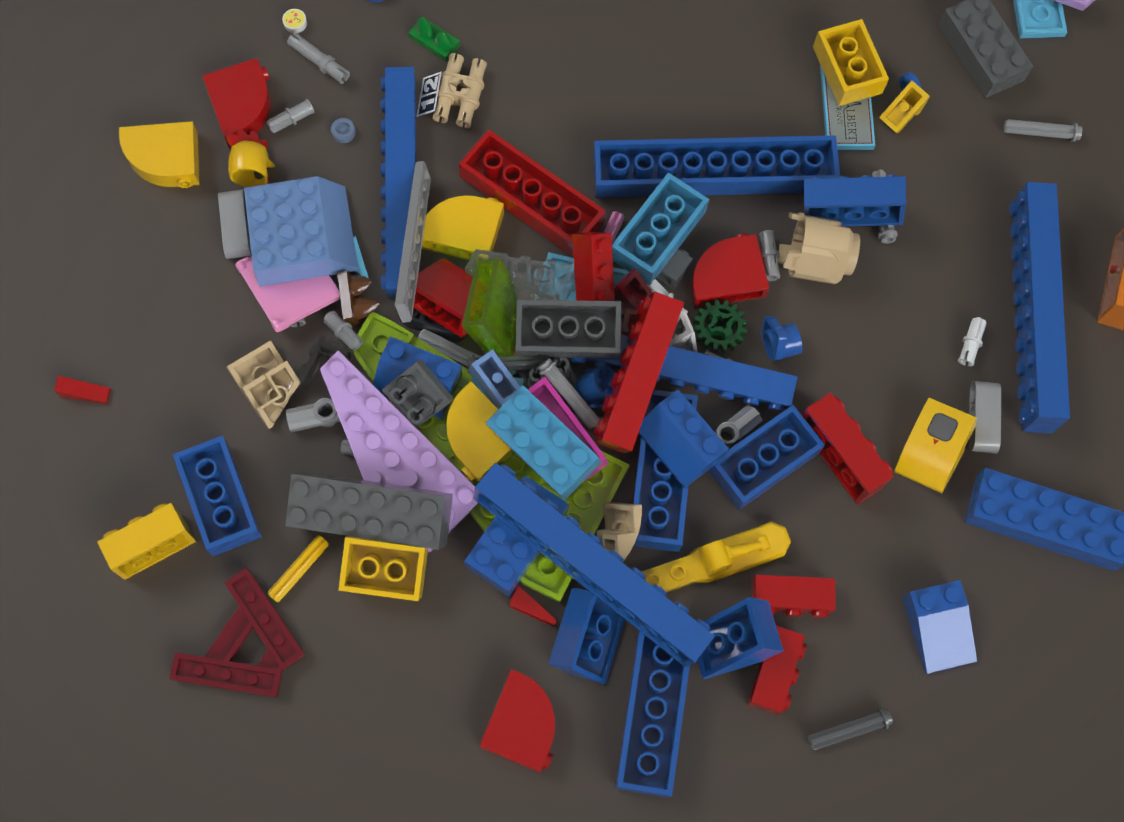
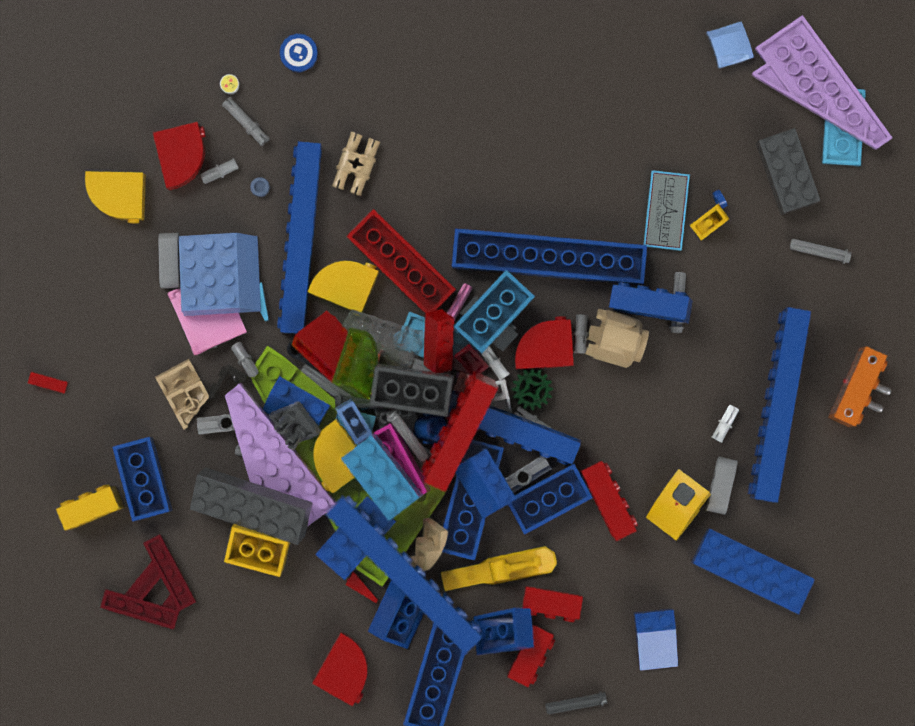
camera: 20 degrees right, 15 degrees up
(247, 156) = (184, 208): yellow piece -> none
(298, 568) = (195, 538): yellow axle -> none
(352, 306) = (253, 341): reddish brown tile -> none
(413, 242) = (304, 301): light grey tile -> none
(429, 94) = (331, 164): sticker -> none
(434, 38) = (340, 113): green tile -> none
(780, 340) = (576, 407): blue piece -> none
(850, 62) = (671, 180): yellow brick -> none

